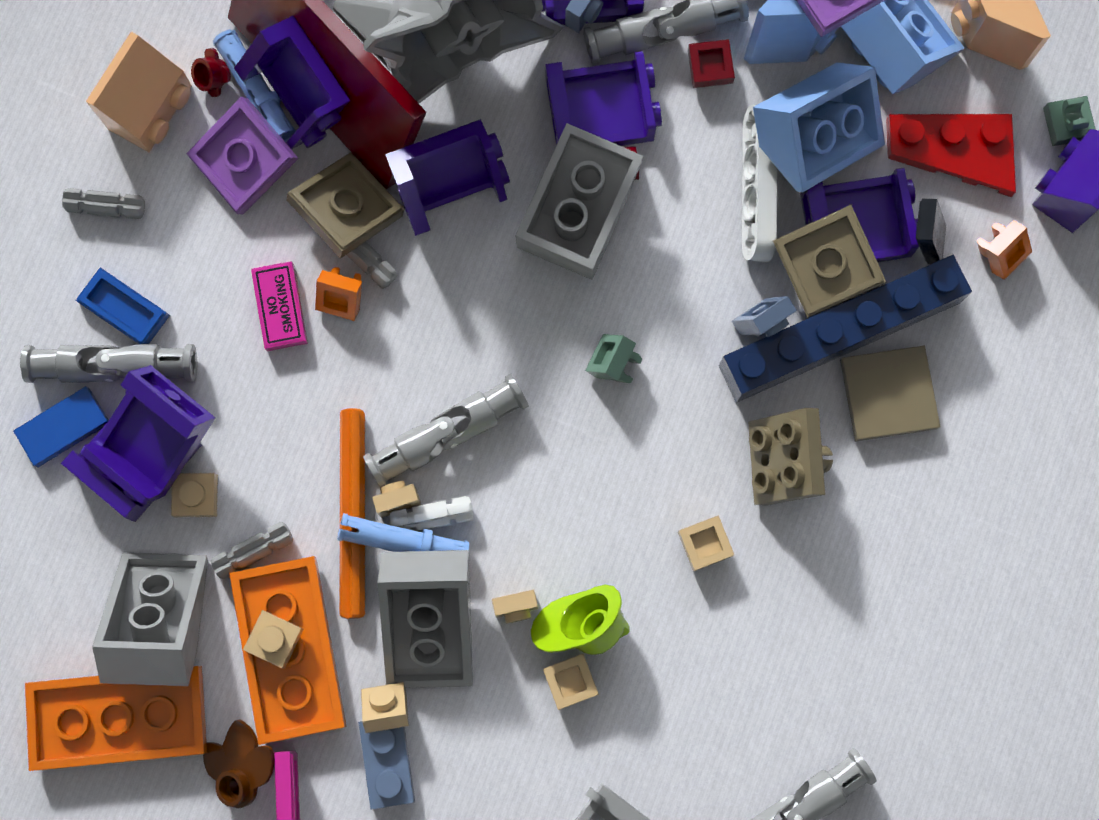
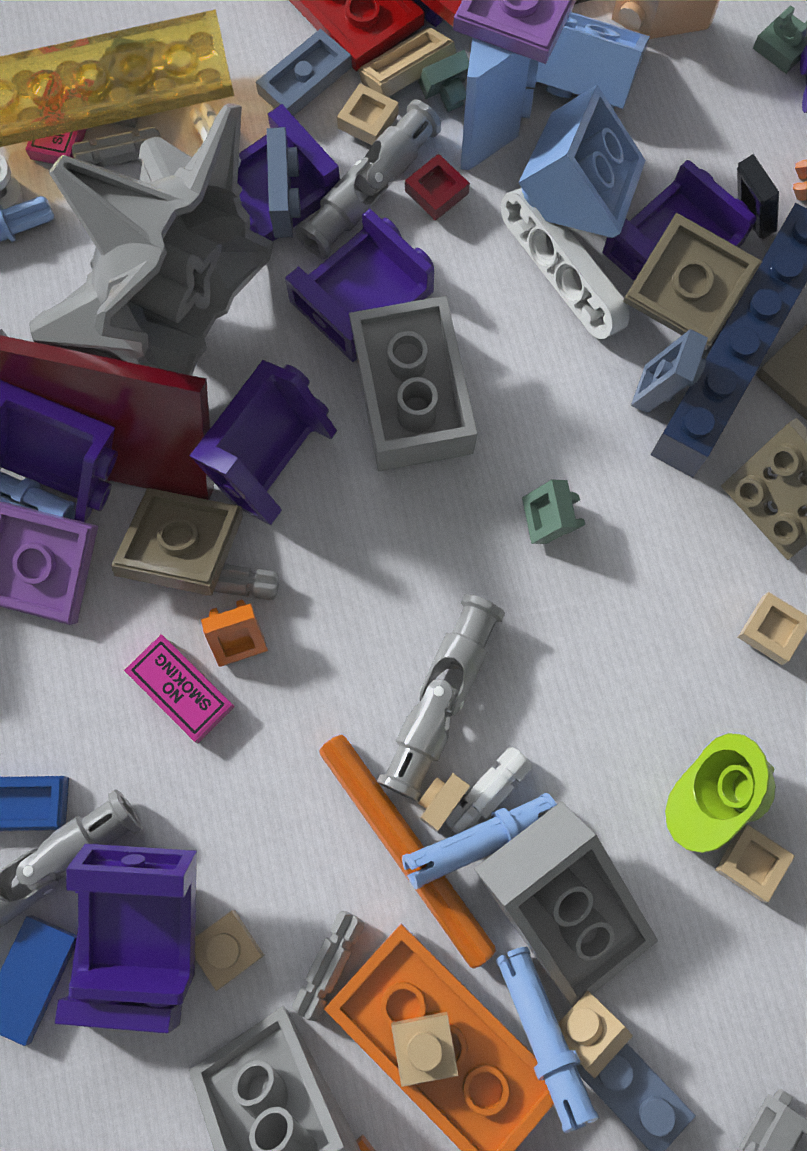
camera: 35 degrees left, 5 degrees down
(348, 701) = (547, 1041): none -> light blue pin
(515, 606) = (643, 825): tan plate -> none
(960, 145) = (709, 119): red wing -> none

